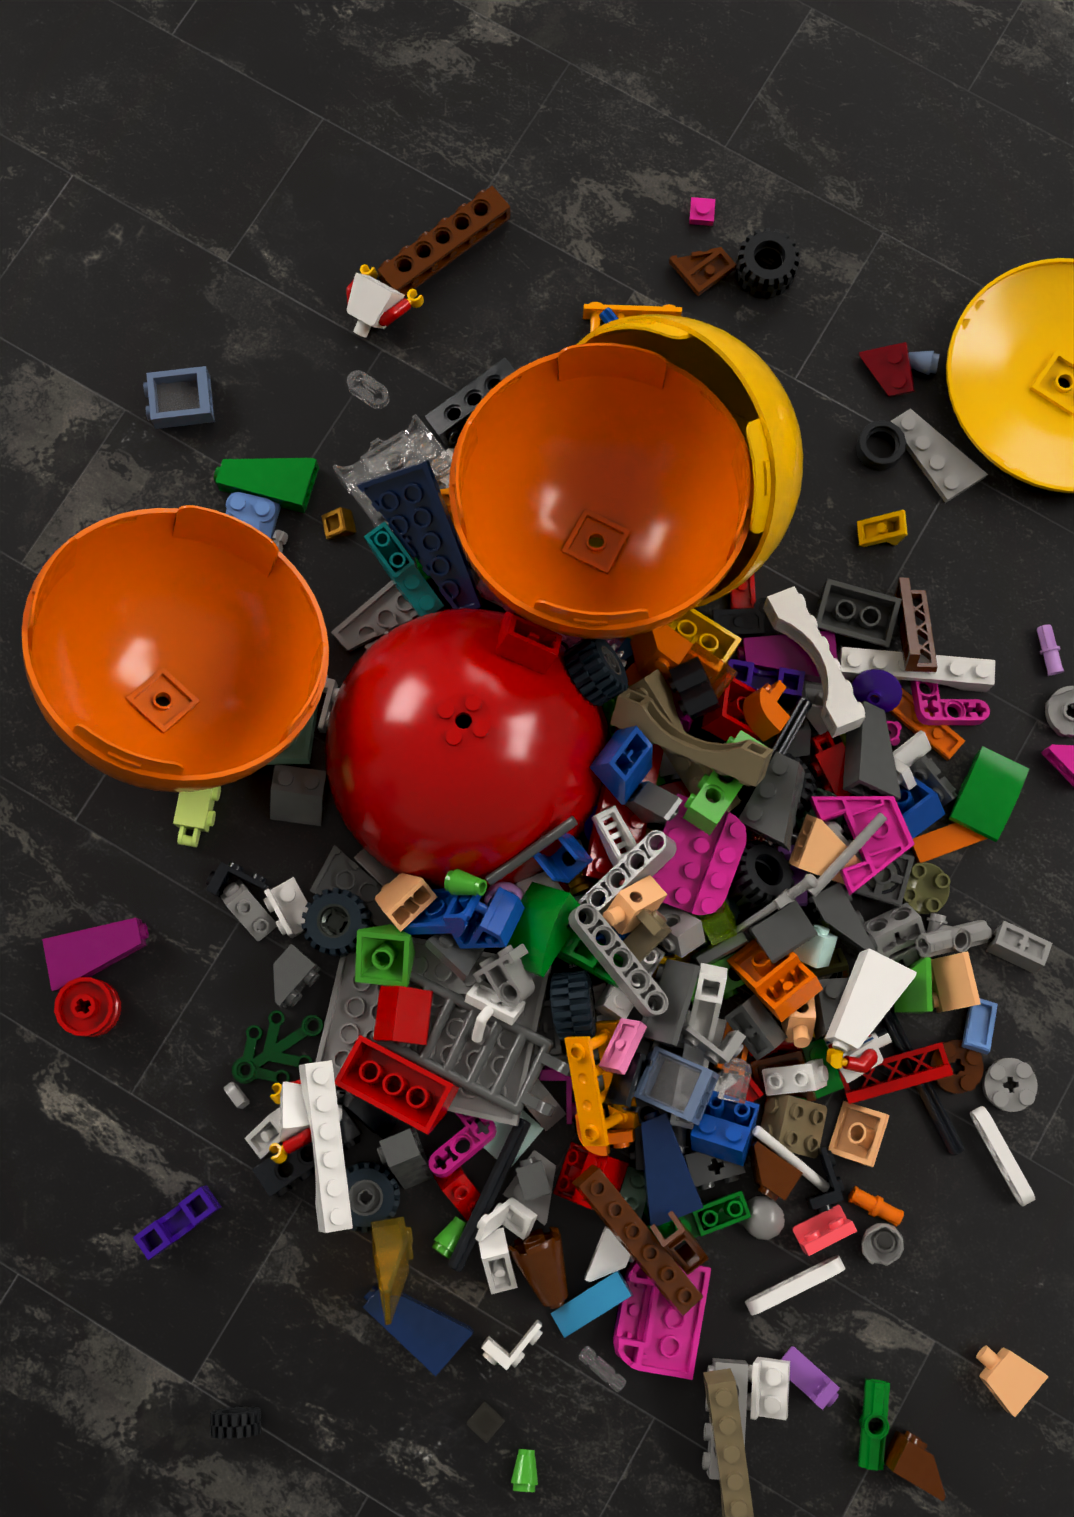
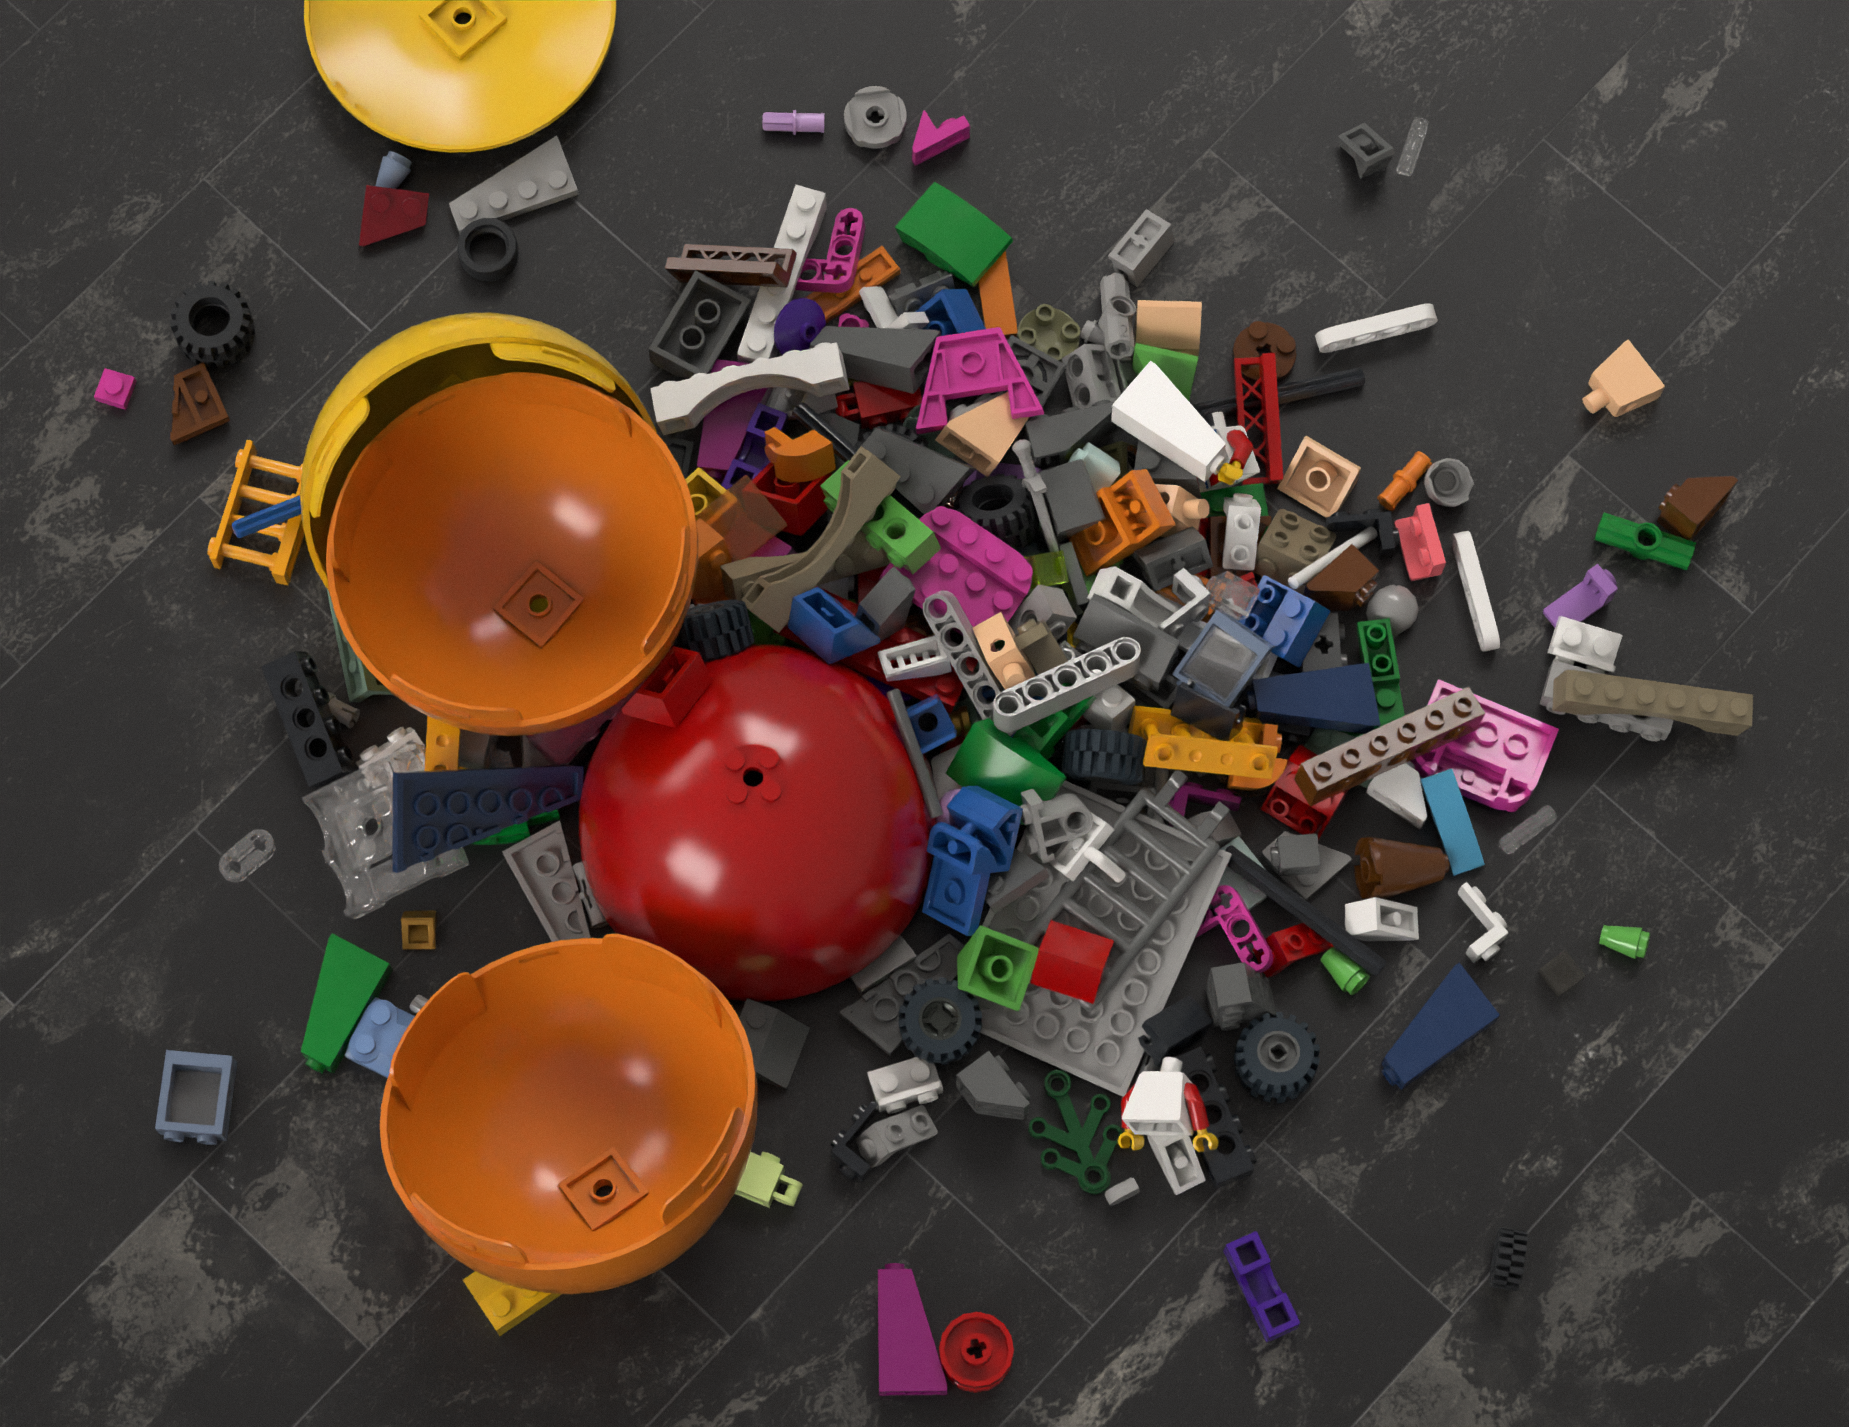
camera: 75 degrees left, 5 degrees down
(330, 1172) = (1150, 1072): white arch -> none
(375, 302) = (134, 817): white torso -> none
(391, 1259) = (1359, 1038): clear yellow slope -> none
(396, 1085) = (1154, 981): red slope -> none
(402, 570) = (516, 850): teal slope -> none
(404, 899) = (932, 928): light nougat torso -> none
(459, 241) = (111, 786): reddish brown brick -> none
(462, 883) = (936, 841): bright green cone -> none
(509, 1214) = (1334, 891): white bracket -> none
(622, 1046) = (1166, 705): bright pink plate -> none
(689, 1255) = (1408, 696): reddish brown window -> none
(694, 688) = (756, 527): black brick -> none
(848, 853) = (992, 398): light grey bar -> none
(882, 528) = (597, 272): yellow slope -> none
(980, 1026) = (1226, 315): medium blue tile -> none
(1022, 1094) = (1301, 282): light grey plate -> none

